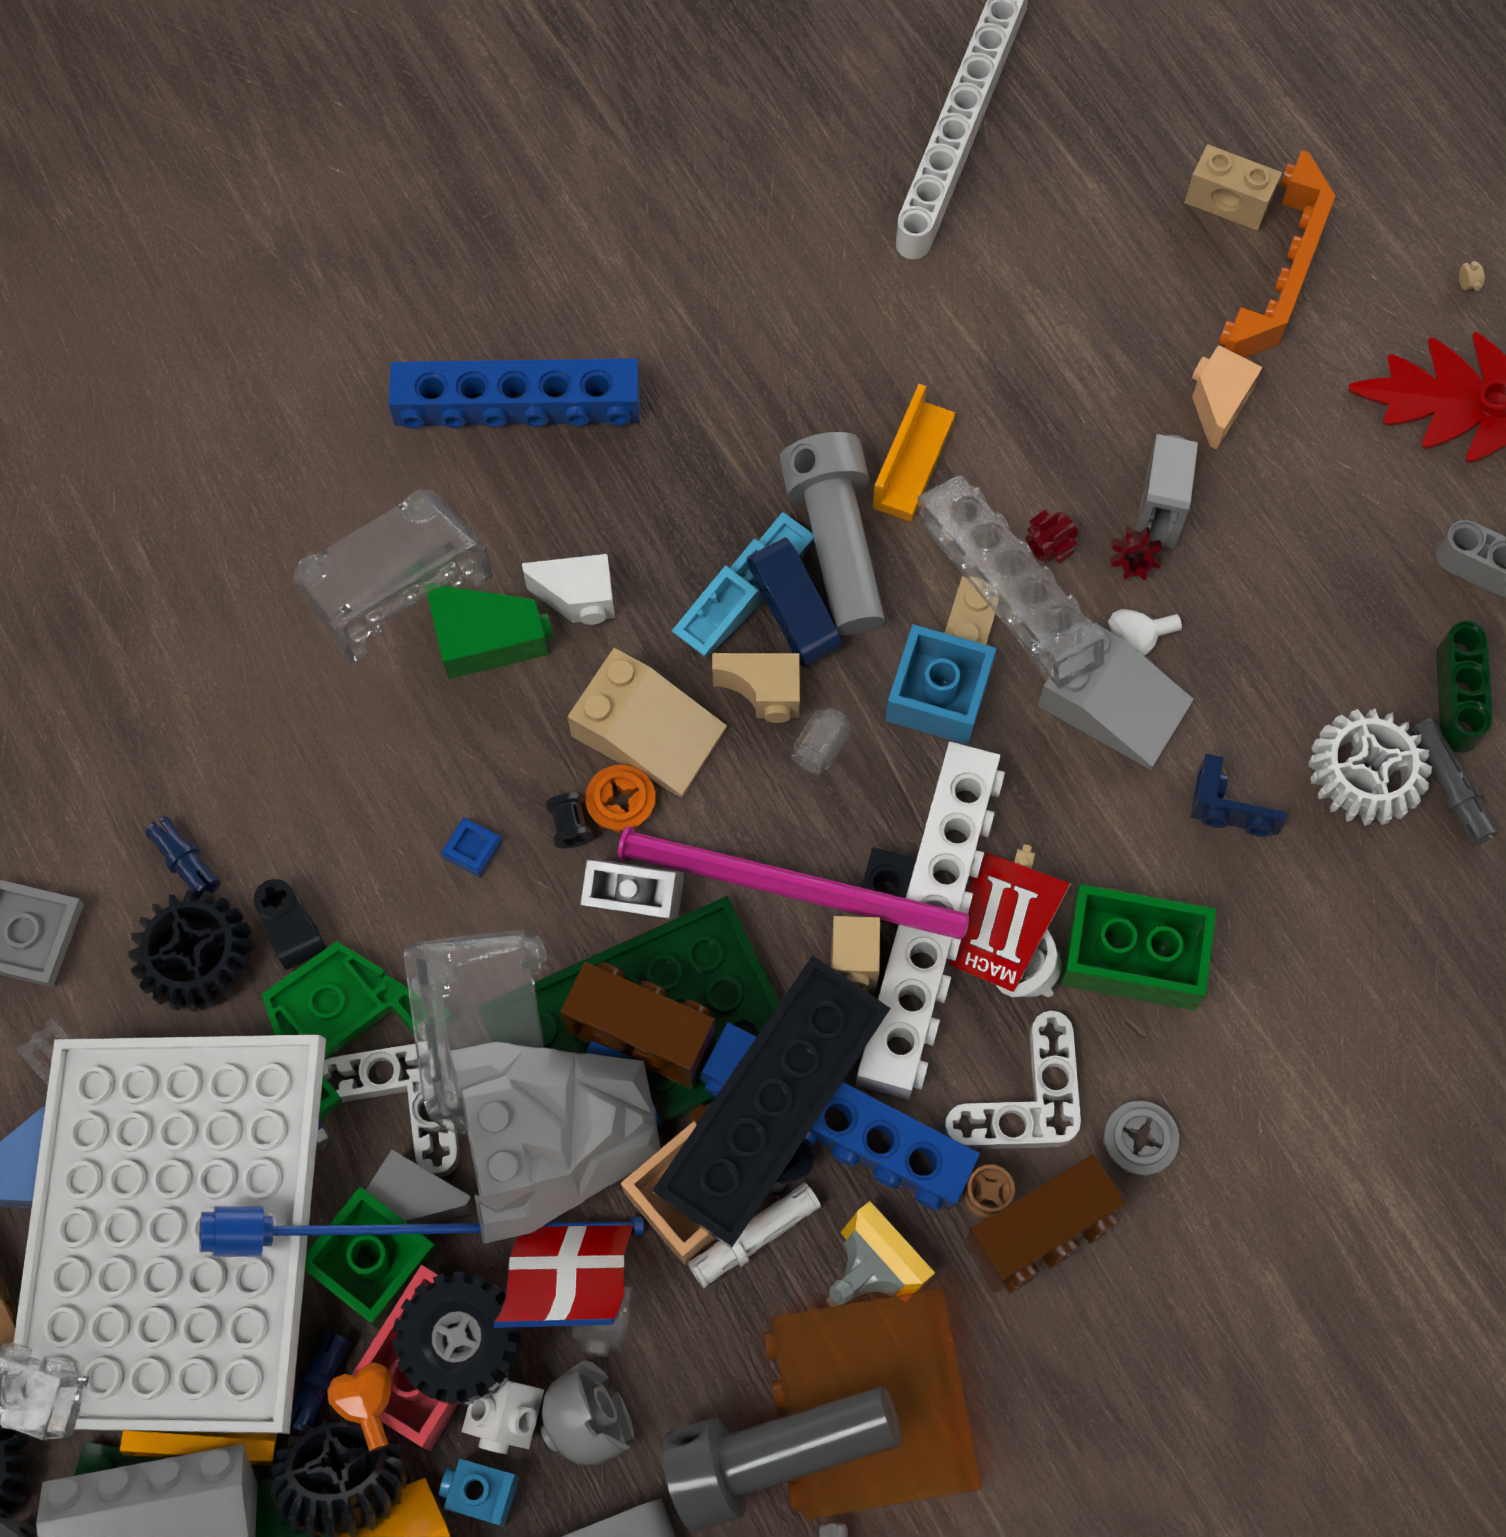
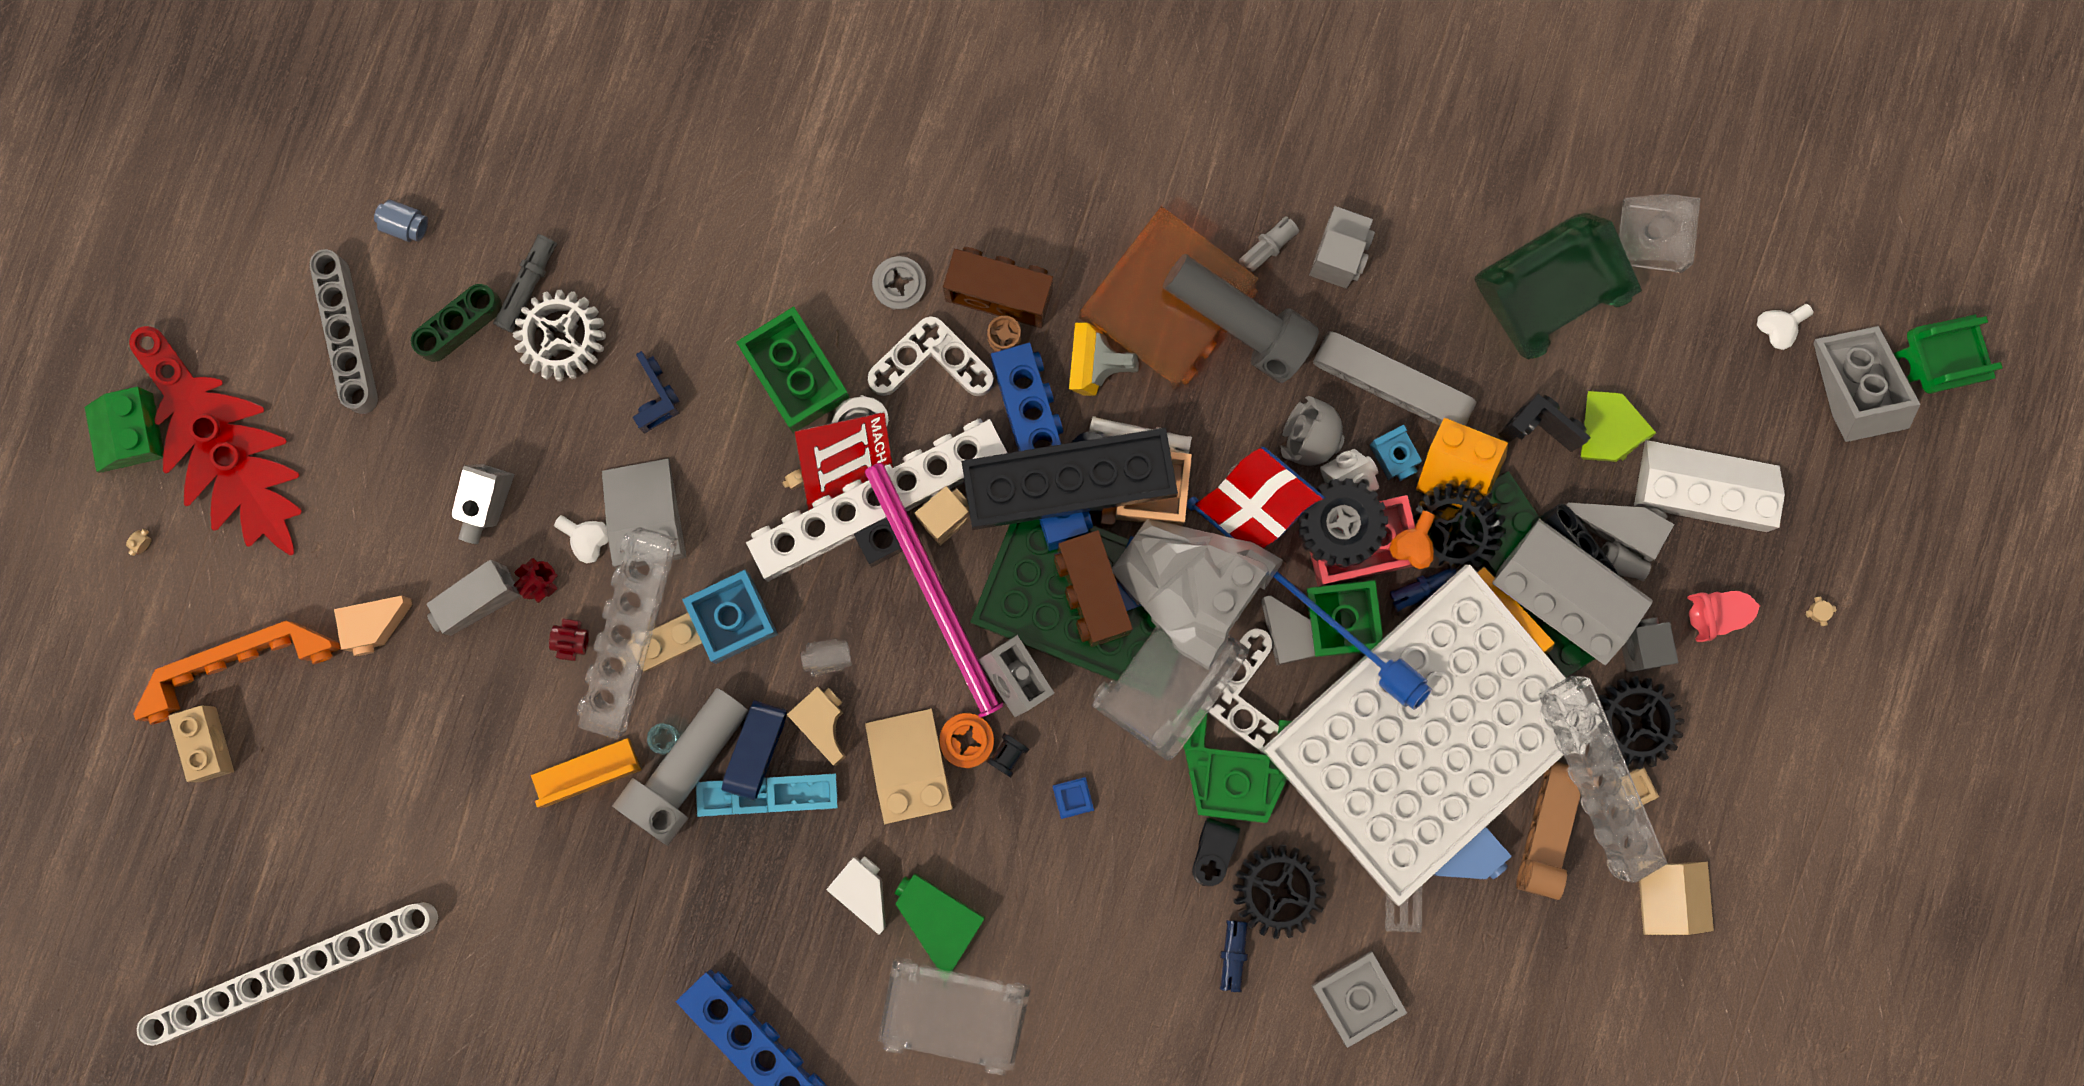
camera: 135 degrees left, 15 degrees up
(890, 533) = (656, 731): none -> clear light blue bush
(1261, 568) = (480, 487): none -> light grey torso

